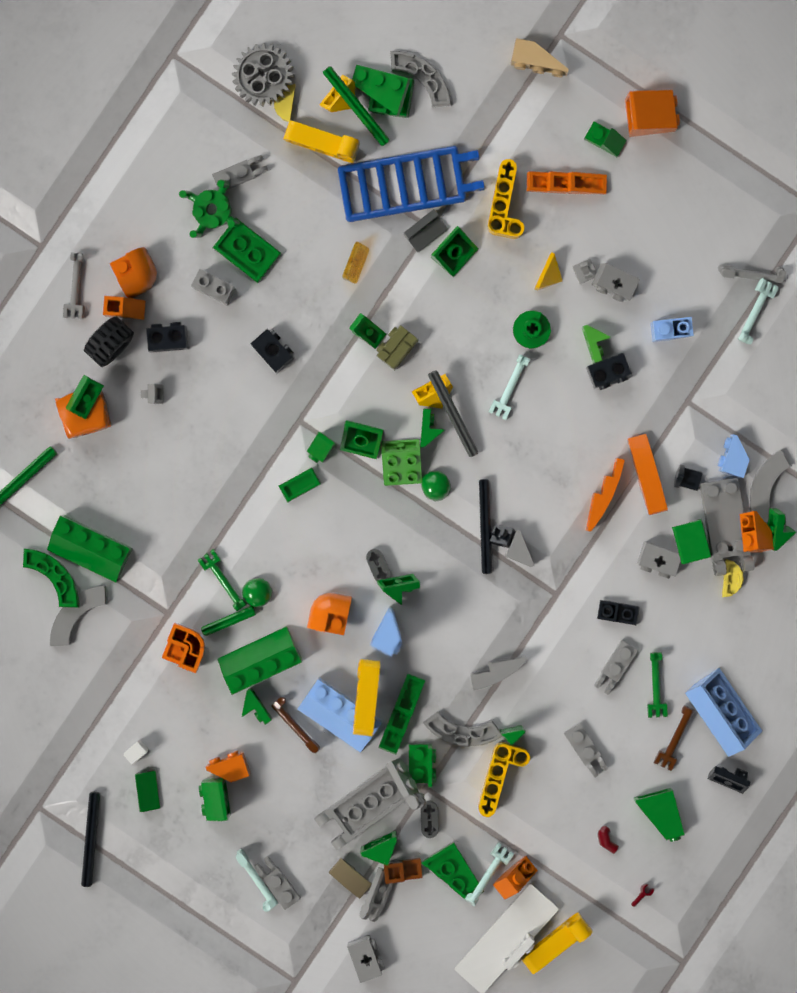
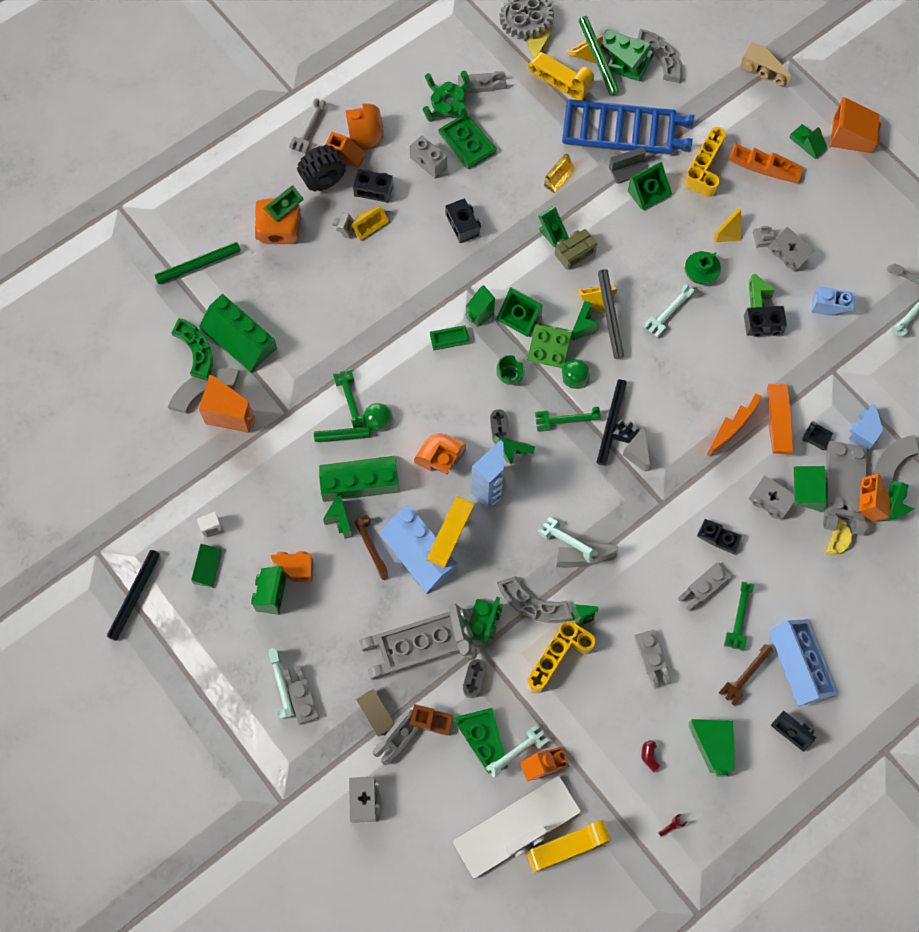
camera: 10 degrees right, 20 degrees down
(108, 633) = (225, 407): none -> orange slope
(175, 380) = (369, 221): none -> yellow slope
(184, 648) = (292, 440): orange brick -> none
(371, 505) = (510, 370): none -> green hair
(380, 849) = (417, 687): green slope -> none
(401, 714) = (478, 567): green slope -> none
(422, 544) = (546, 420): none -> green hinge
(459, 656) = (552, 529): none -> light aqua hinge

